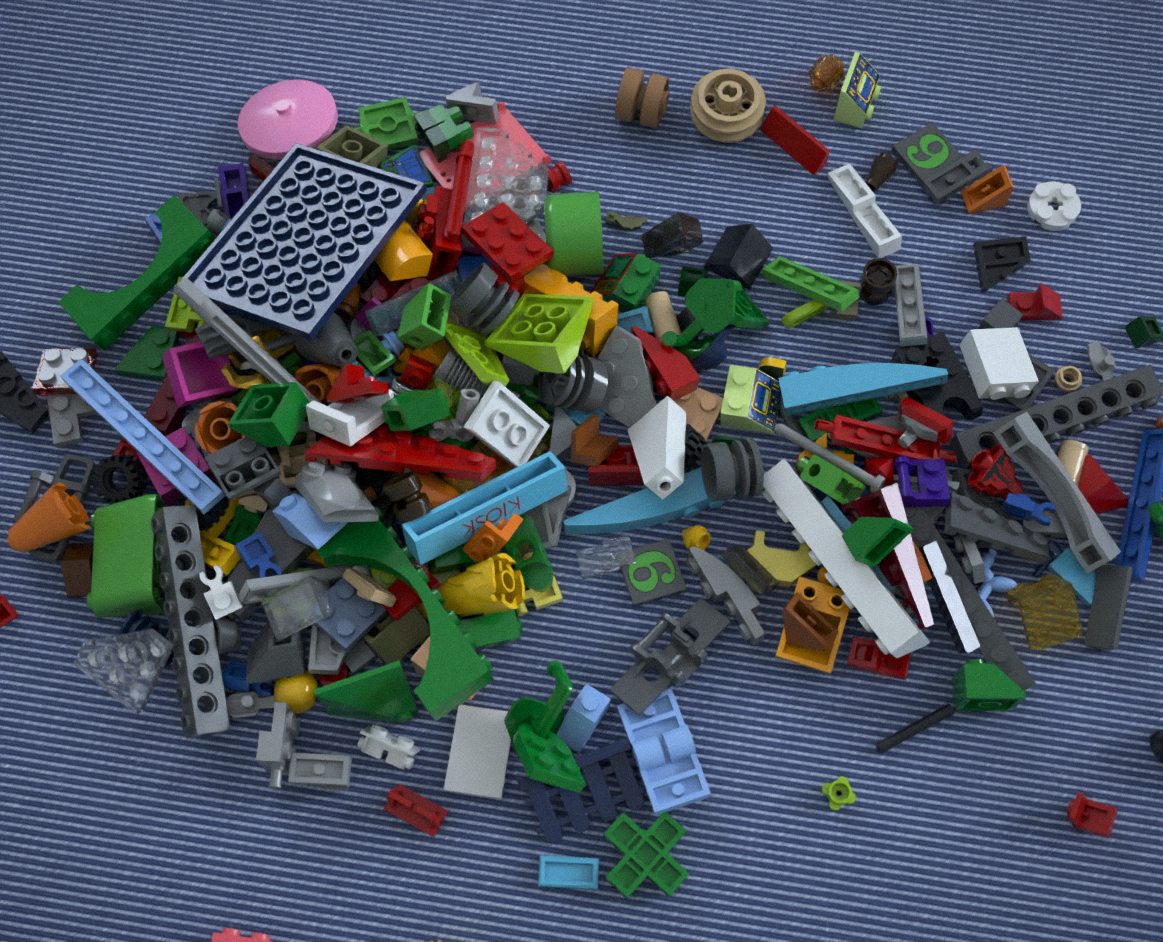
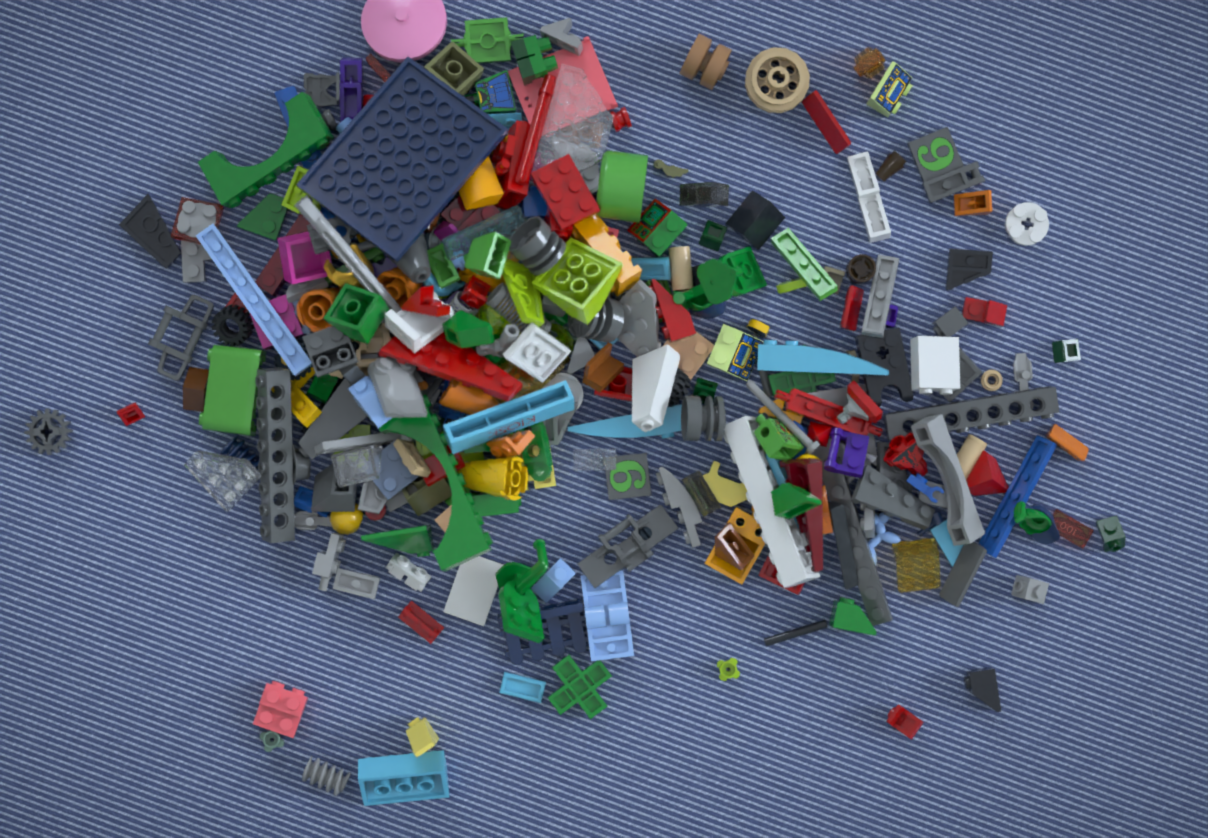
camera: 10 degrees right, 20 degrees up
(49, 520) = (179, 353): orange cone -> none
(216, 221) = (335, 113): light grey piece -> none
(222, 597) = (301, 445): white plate -> none
(256, 554) = (330, 417): blue plate -> none
(408, 499) = (451, 403): dark brown wheel -> none
(696, 536) = (667, 456): yellow plate -> none
(877, 329) = (851, 308): none -> red slope

